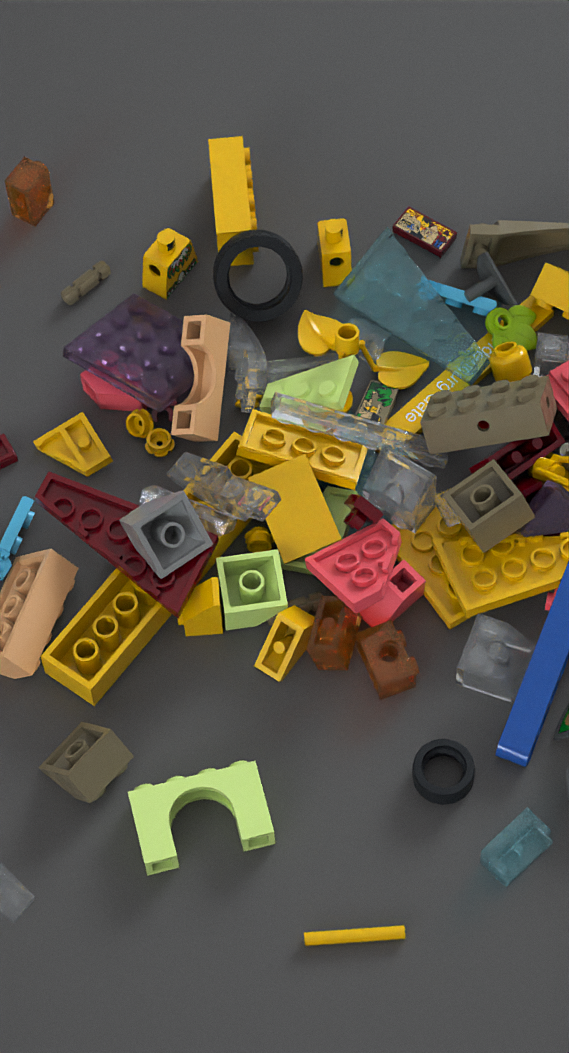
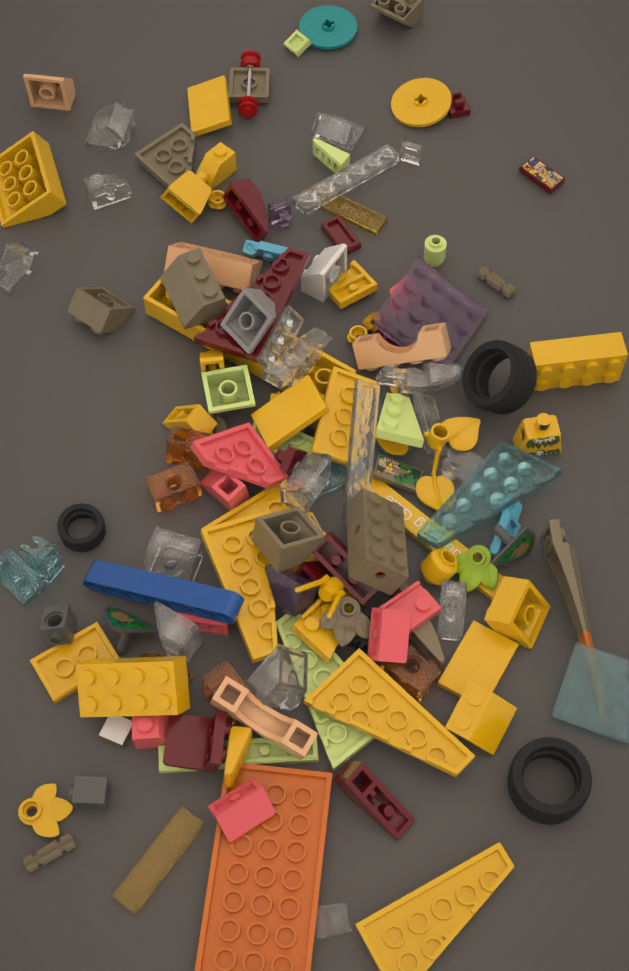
camera: 85 degrees right, 0 degrees up
(29, 191) = (567, 233): clear orange brick -> none
(33, 342) = (435, 250): none -> yellowish green brick
(56, 456) = (324, 271): none -> white slope
(93, 616) = (193, 289): none -> dark tan slope
(167, 262) = (516, 326): yellow torso -> none
(234, 787) = (71, 399): yellowish green arch -> none
(424, 232) = (573, 506): tile -> none
(503, 803) = (43, 560): none -> clear light blue hinge

